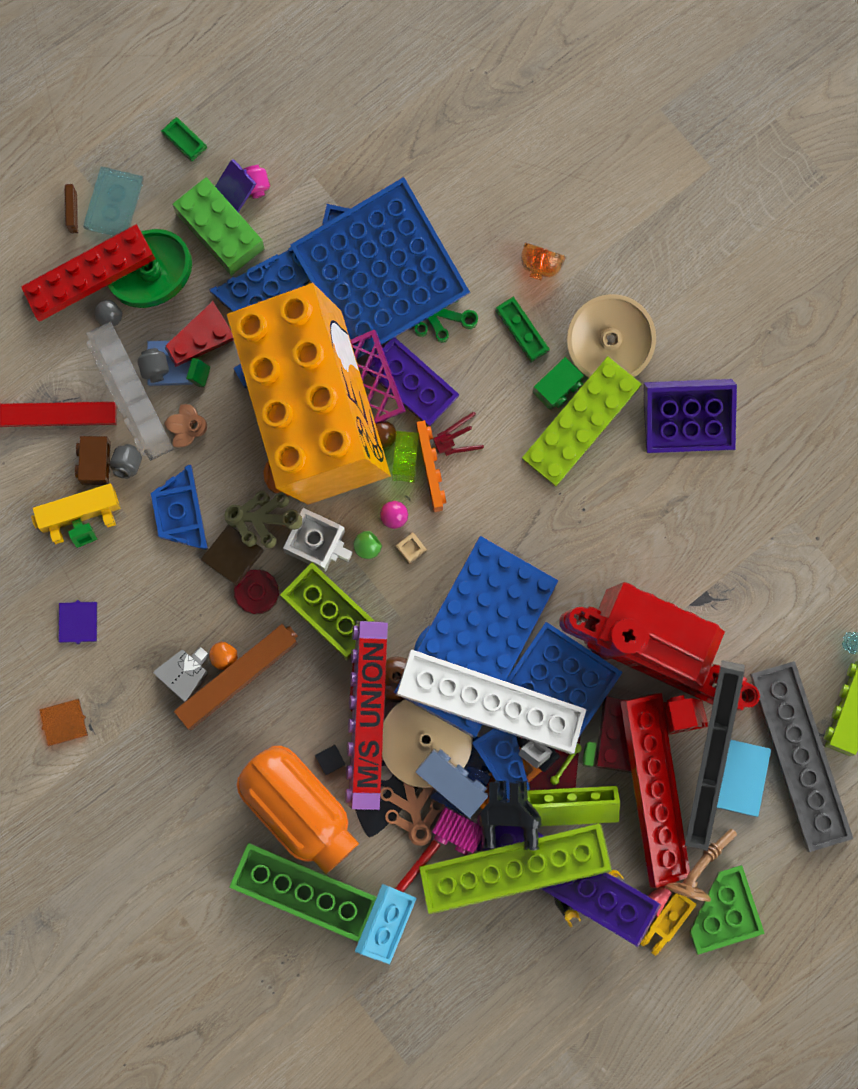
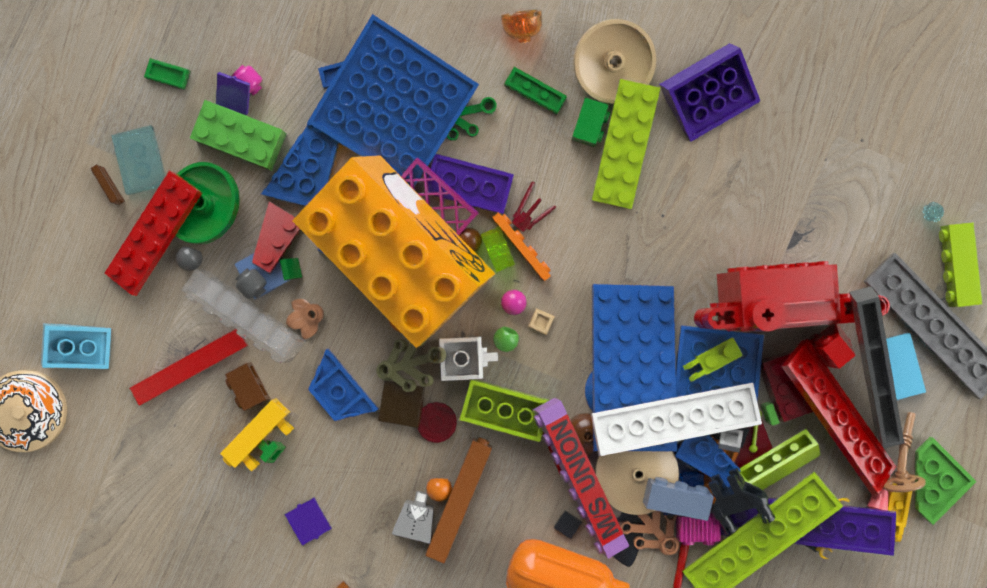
camera: 20 degrees left, 10 degrees up
(125, 461) = (273, 374): dark grey head -> none
(561, 668) = (715, 358): none -> lime hinge

